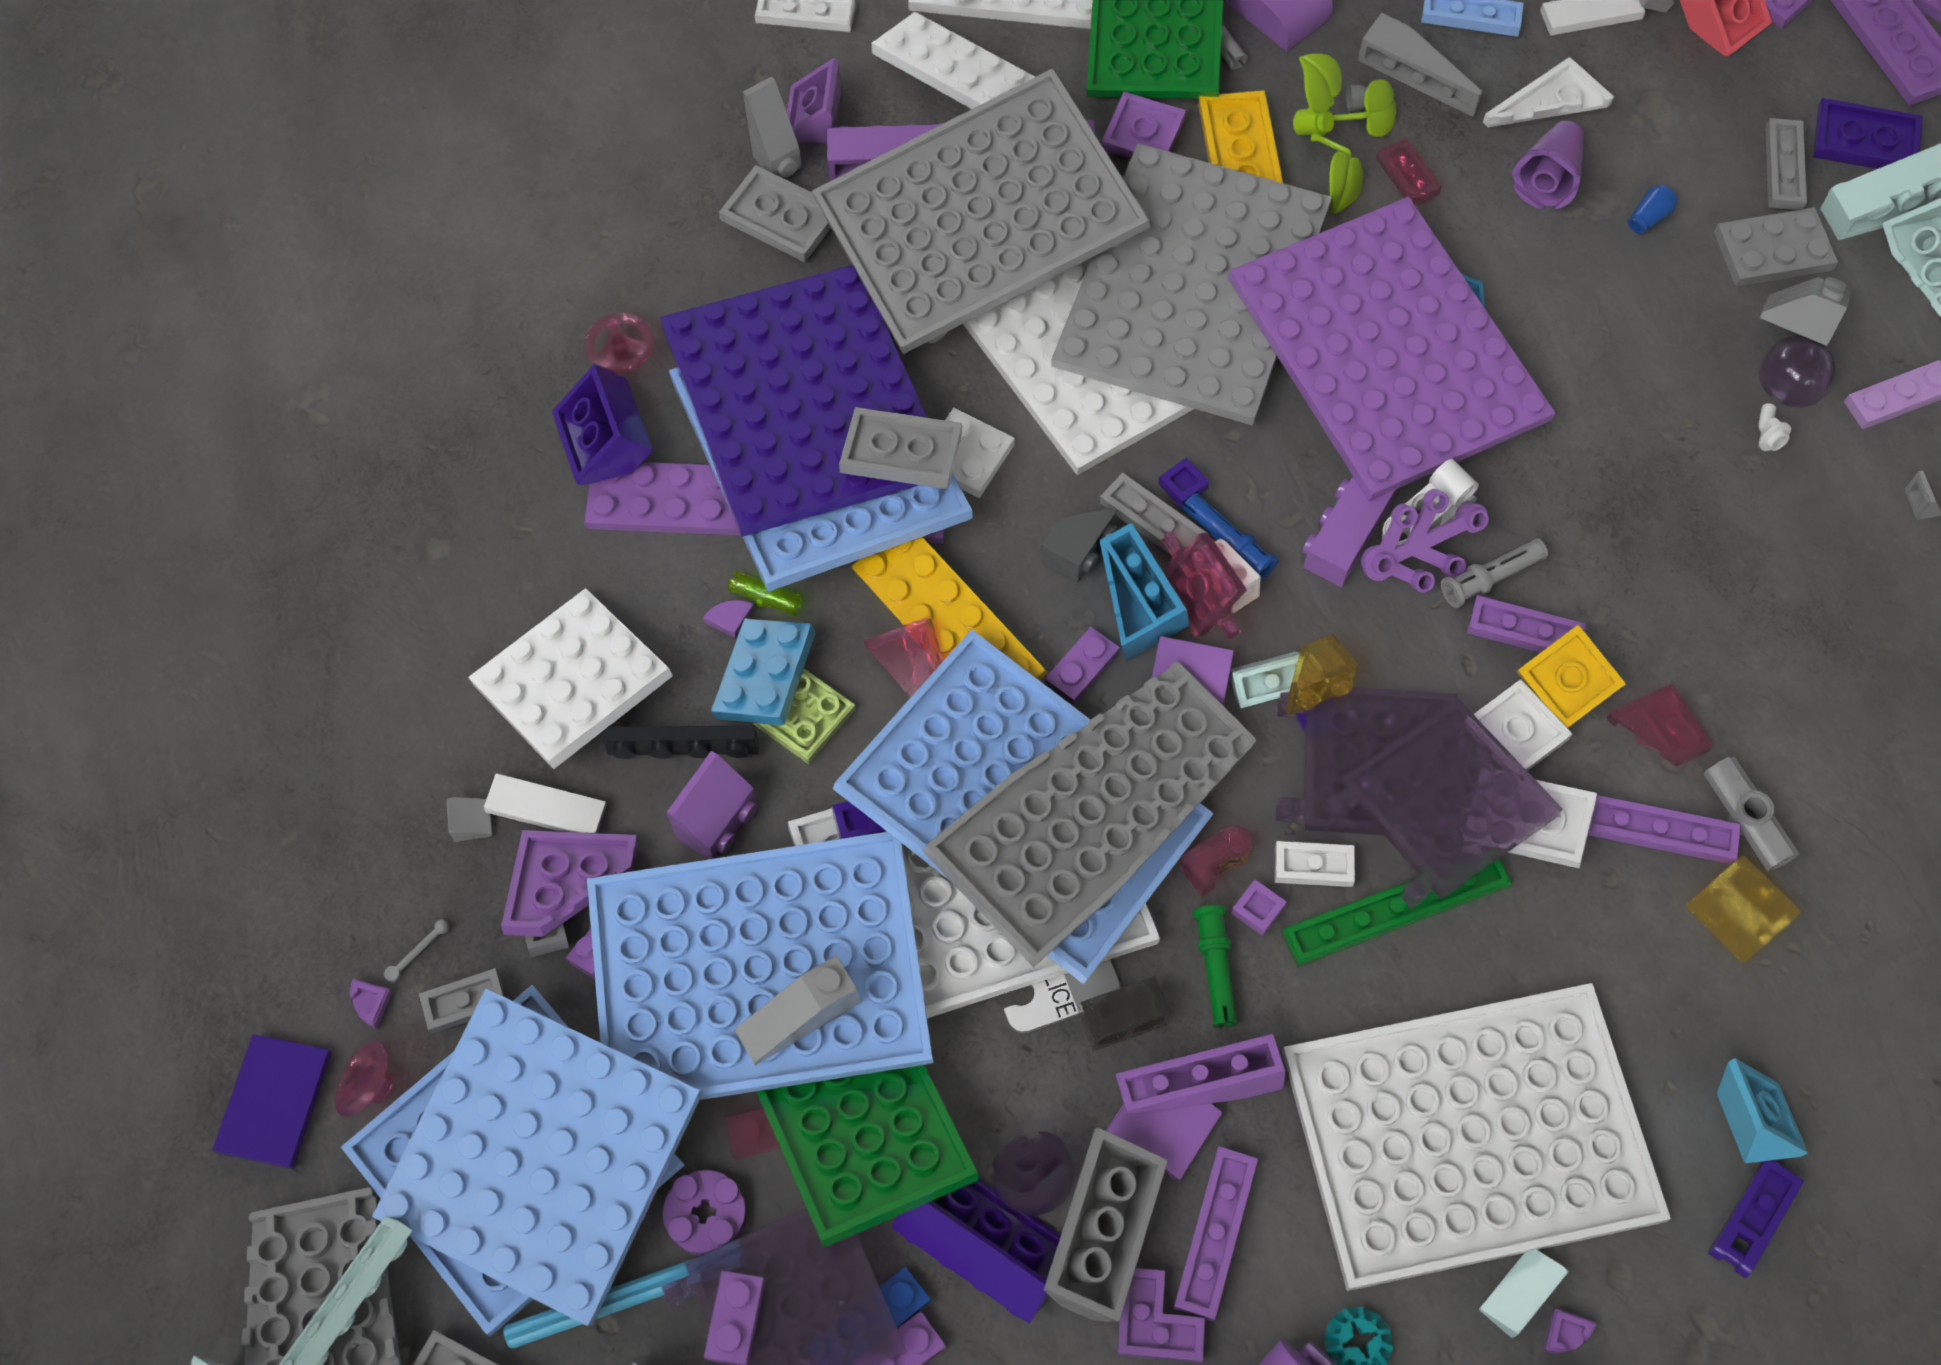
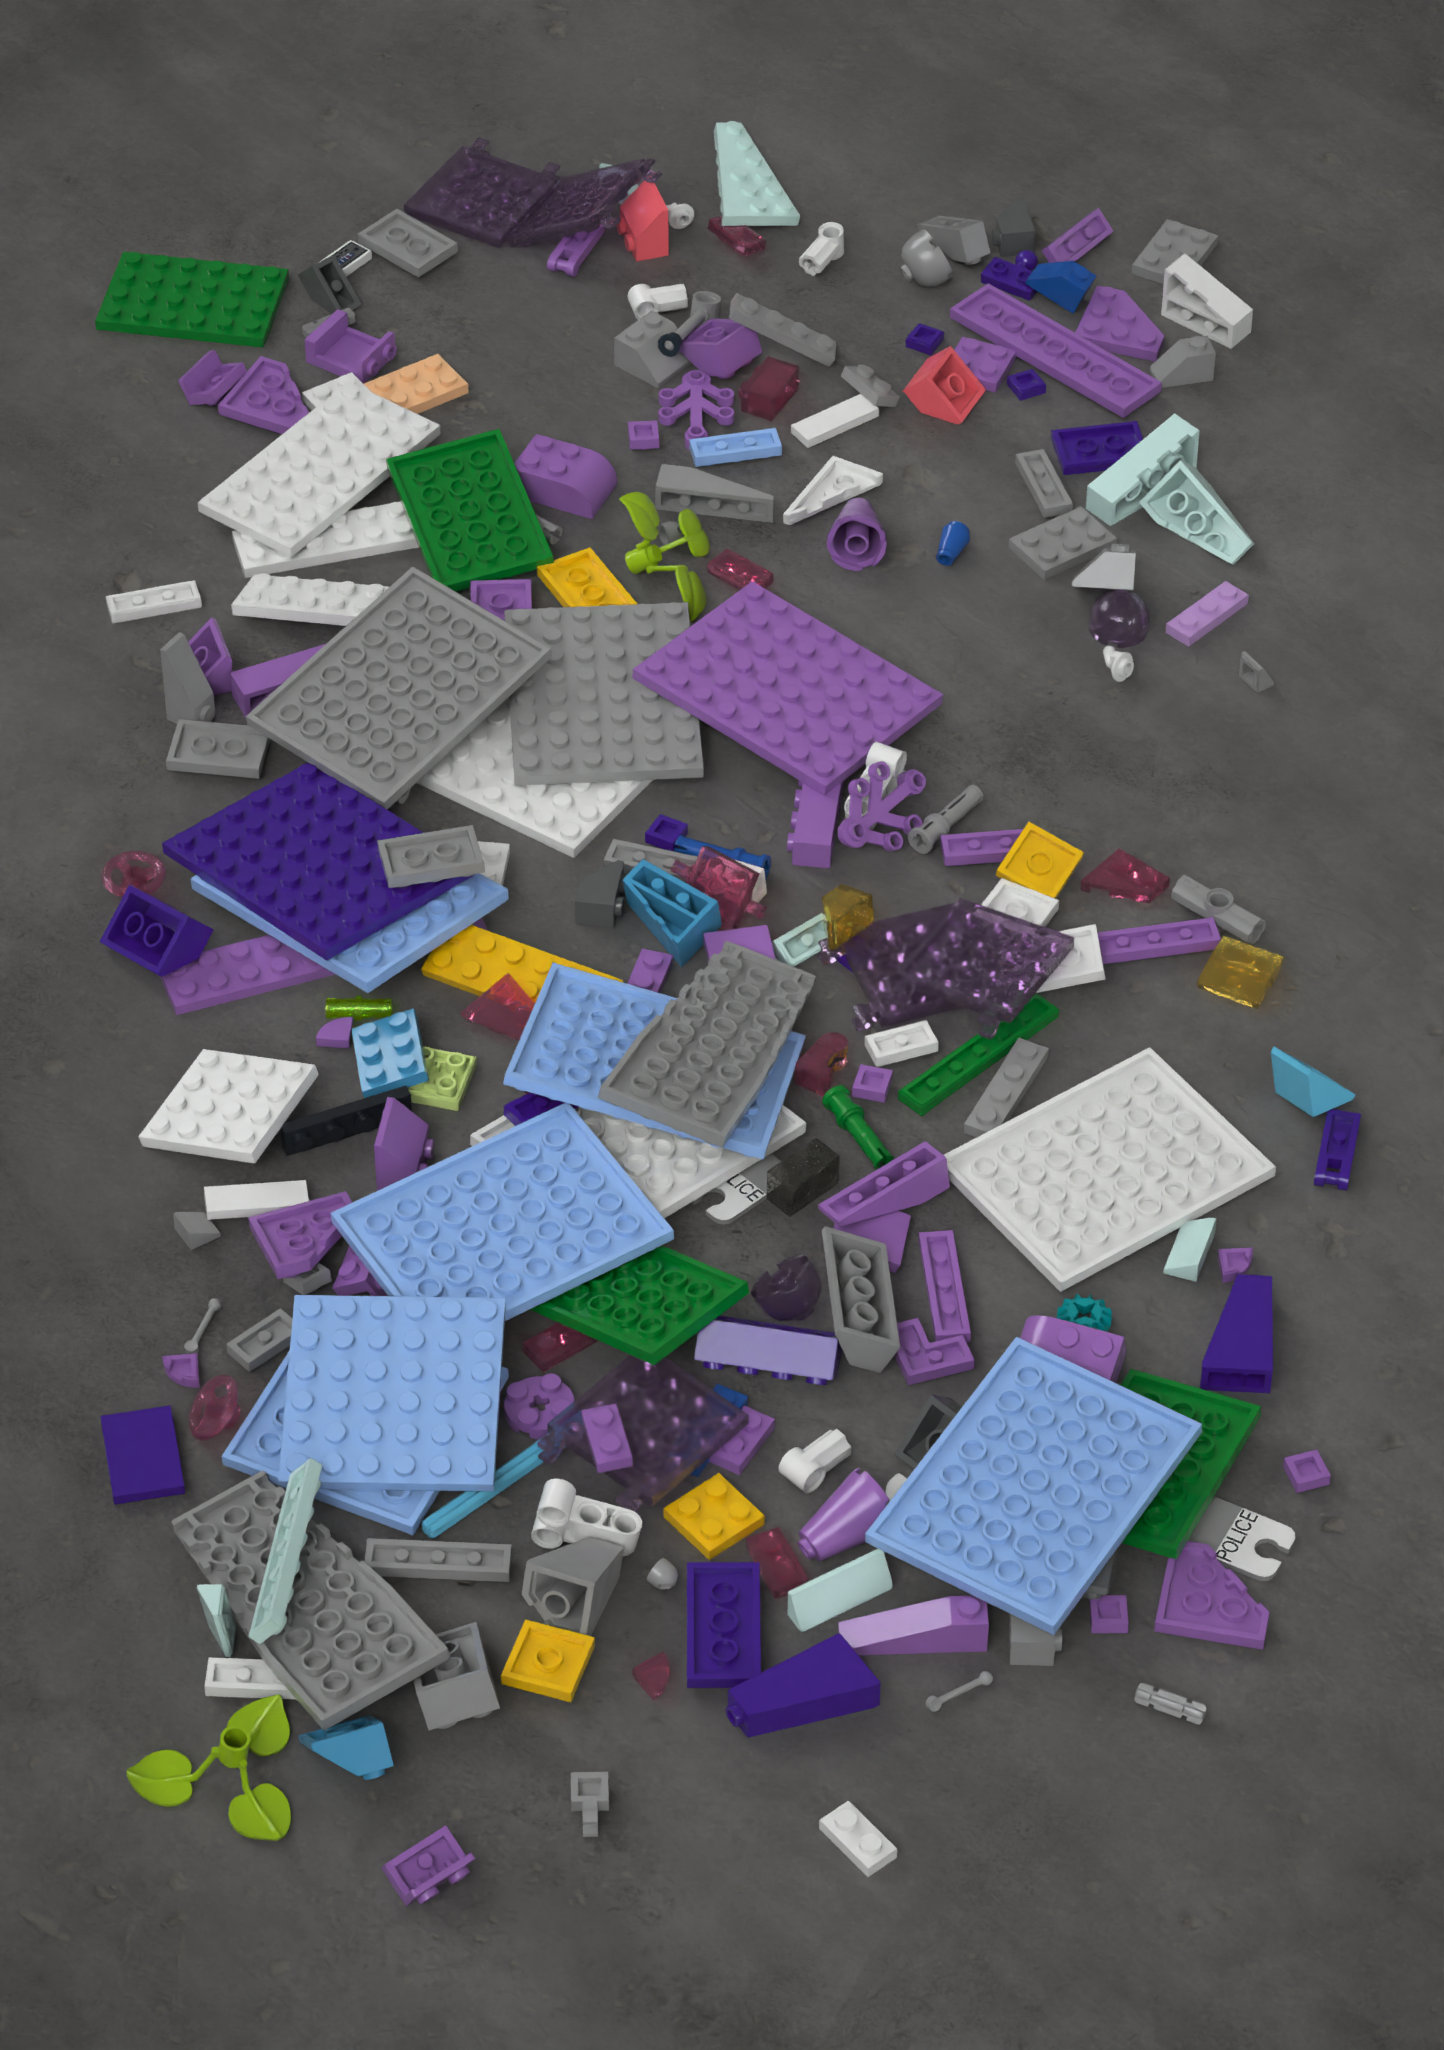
camera: 25 degrees left, 20 degrees down
(799, 1010) = (555, 1226): light grey slope -> none
(1406, 971) = (1007, 1087): none -> light grey plate
(1819, 29) = (1026, 384): none -> dark purple tile

